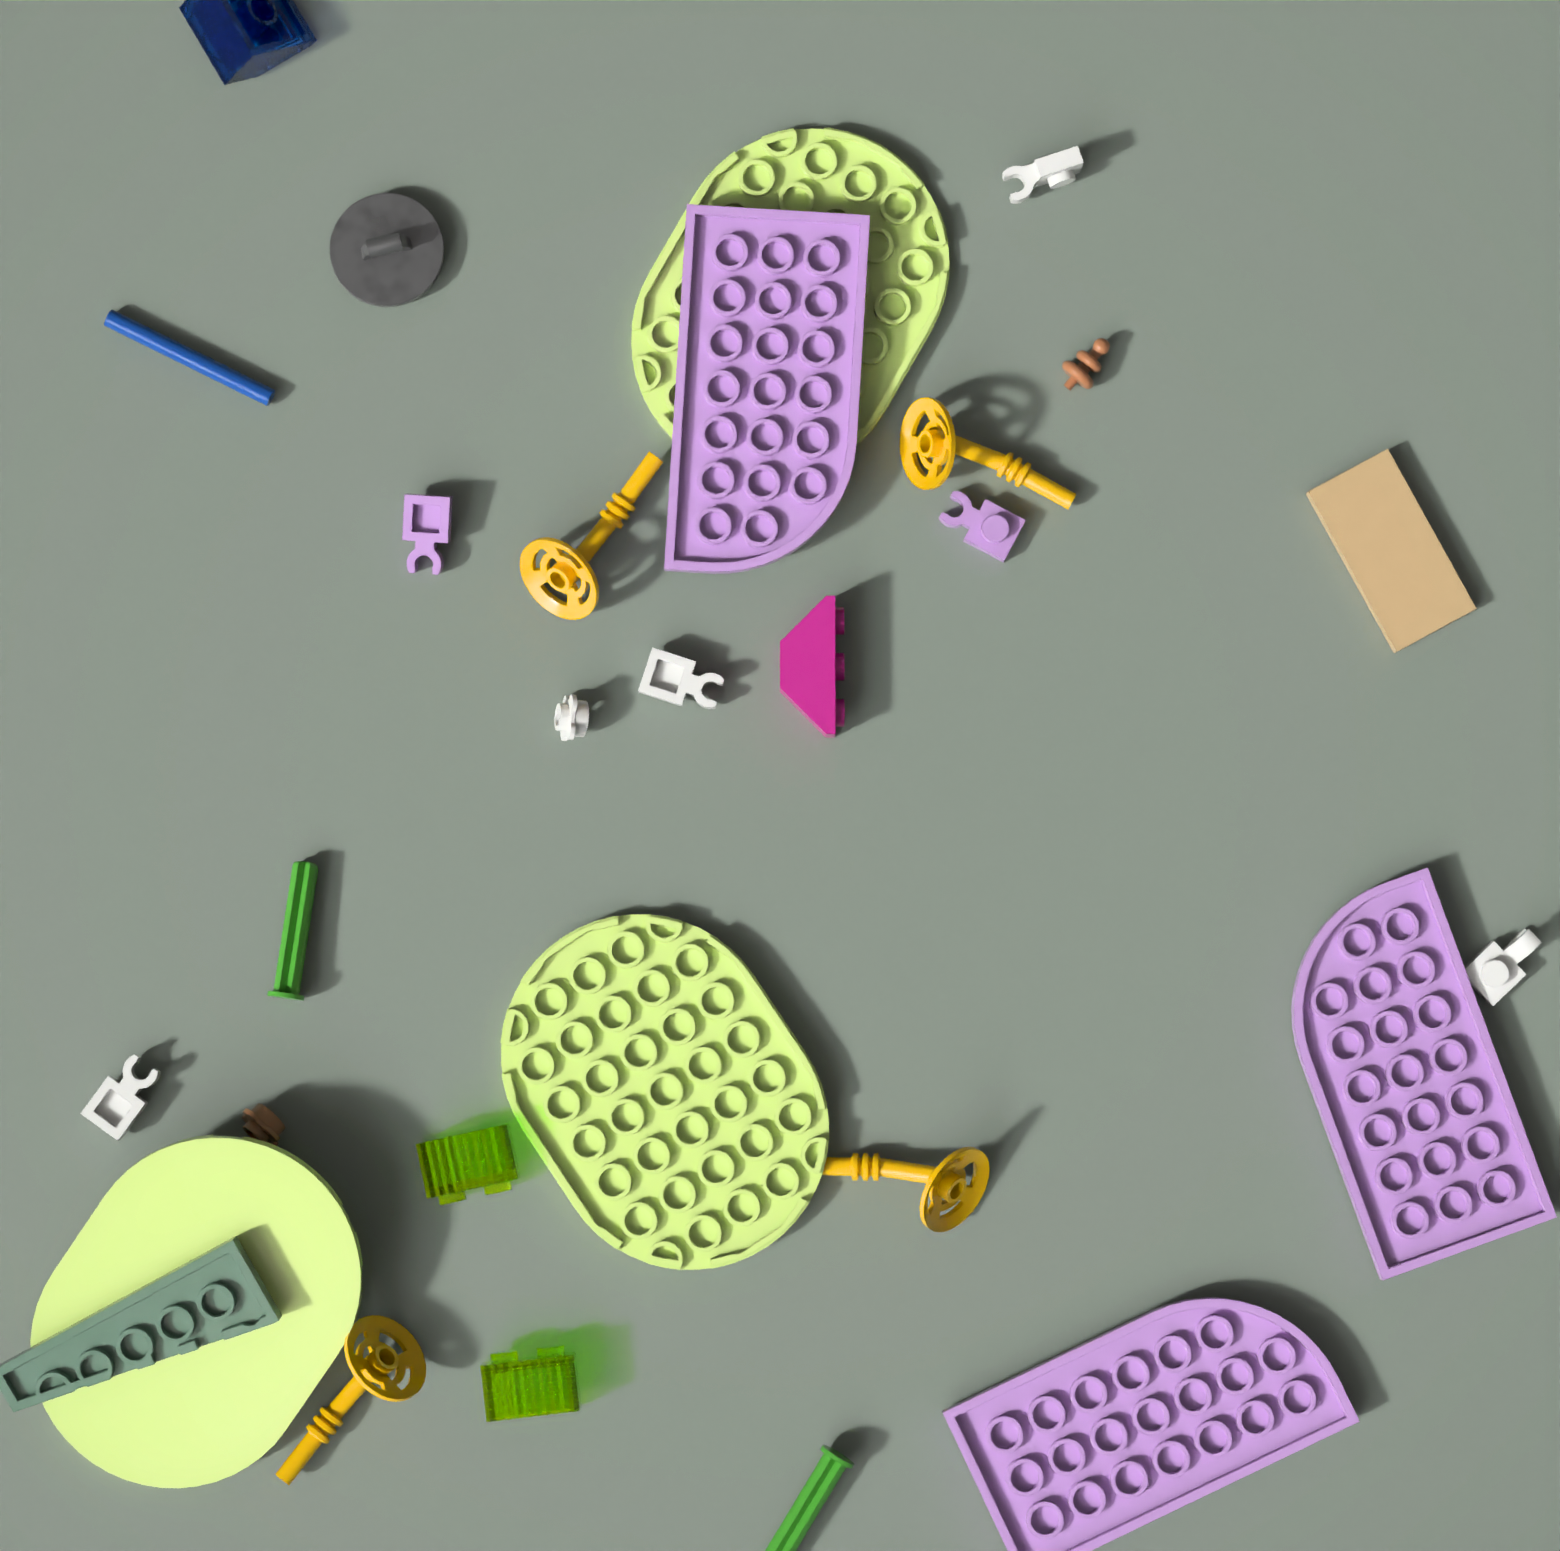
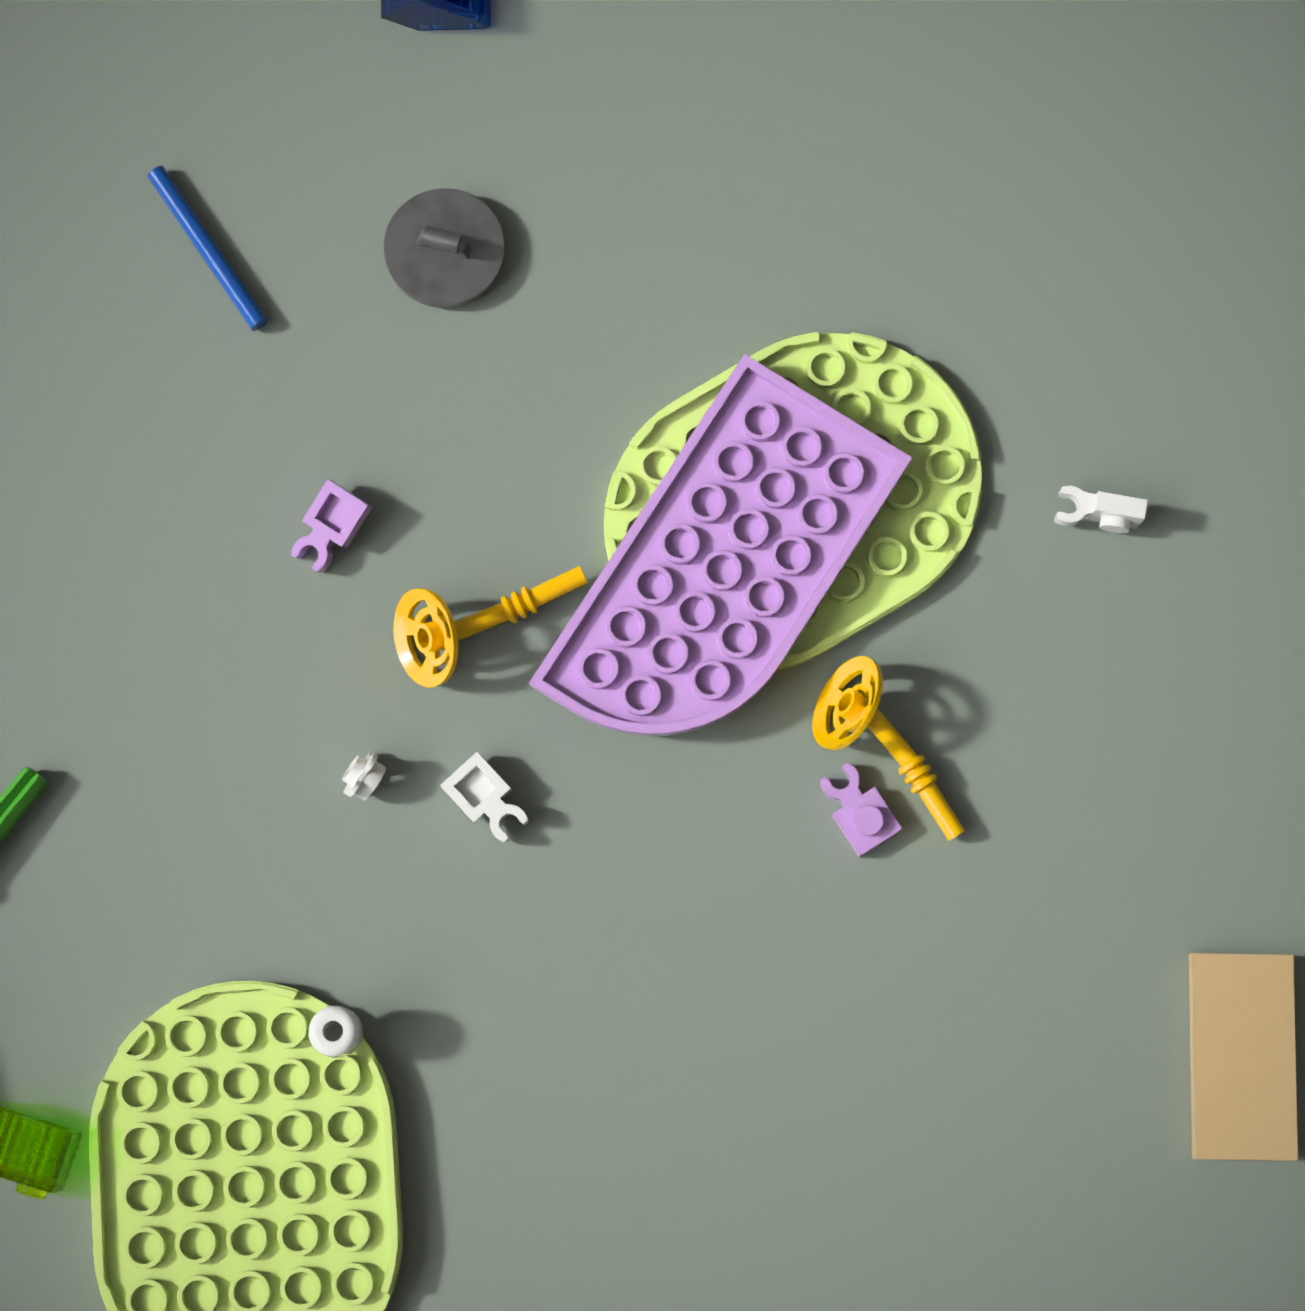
camera: 35 degrees right, 5 degrees down
(669, 928) = (335, 1031): none -> white piece
(812, 667) = (618, 855): dark pink slope -> none
(1087, 362) = (1044, 712): nougat hair -> none

